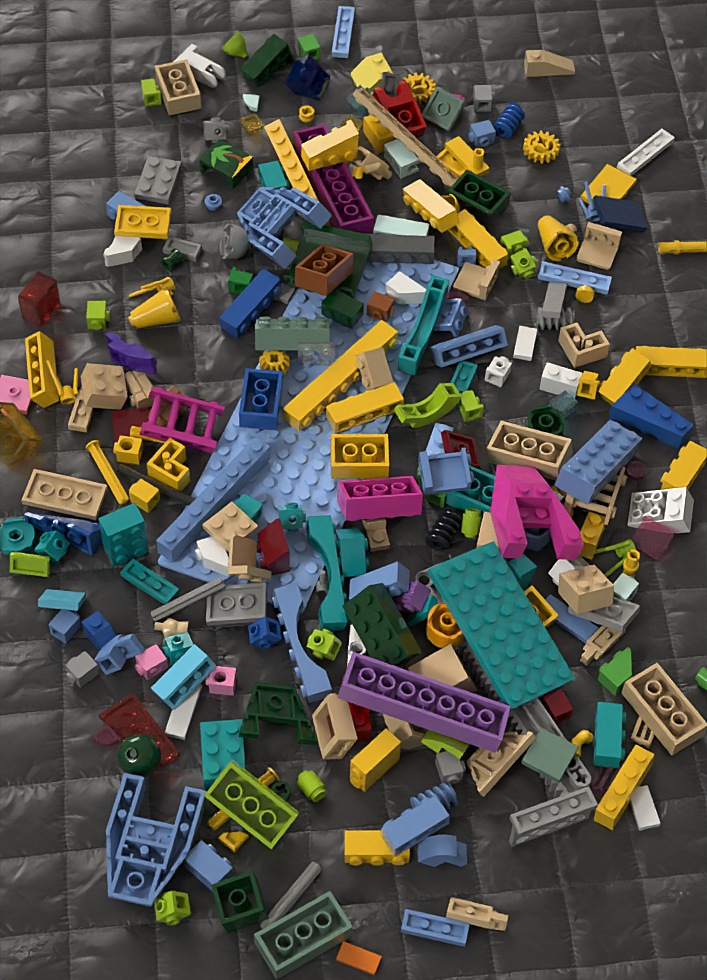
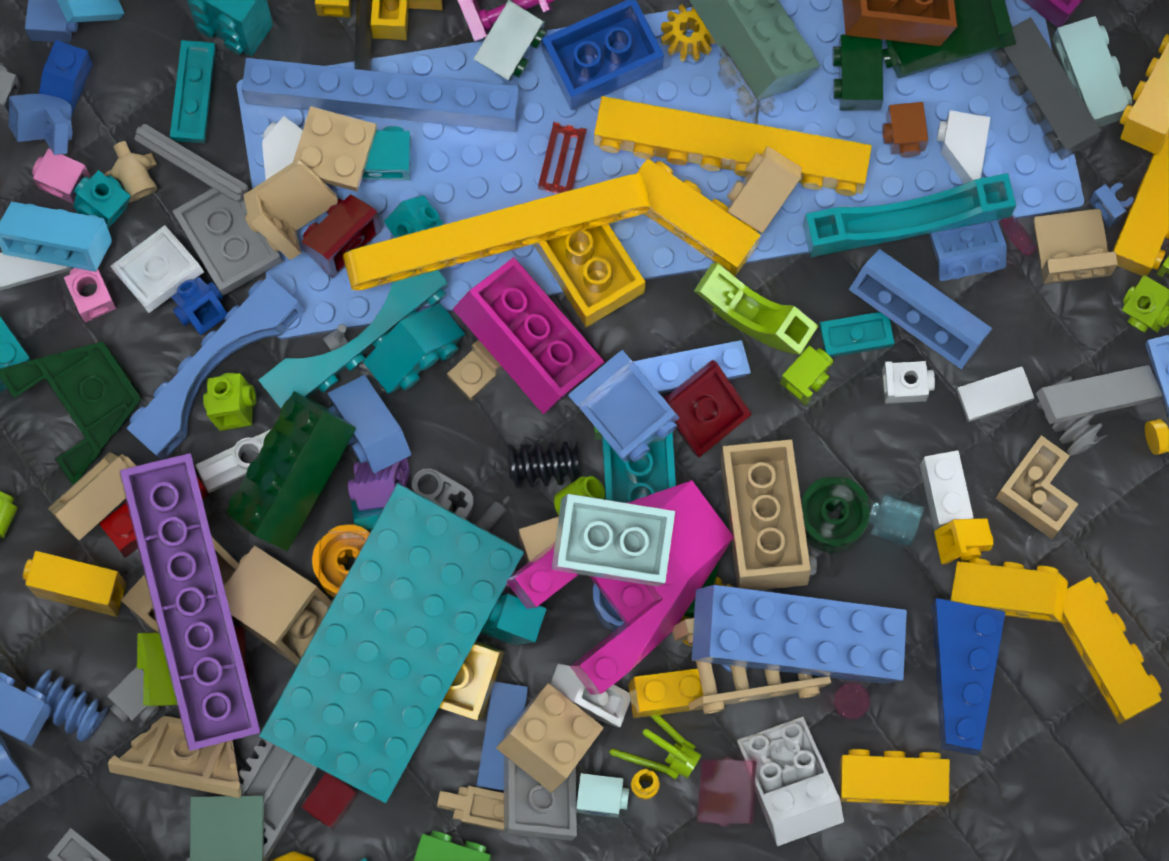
camera: 60 degrees right, 20 degrees up
(228, 430) = (511, 41): none -> brick
(231, 643) = (156, 268): none -> white tile
(293, 436) = (568, 132): none -> clear red tile
(323, 478) = (496, 232): none -> yellow beam
(517, 490) = (613, 540): none -> light aqua brick

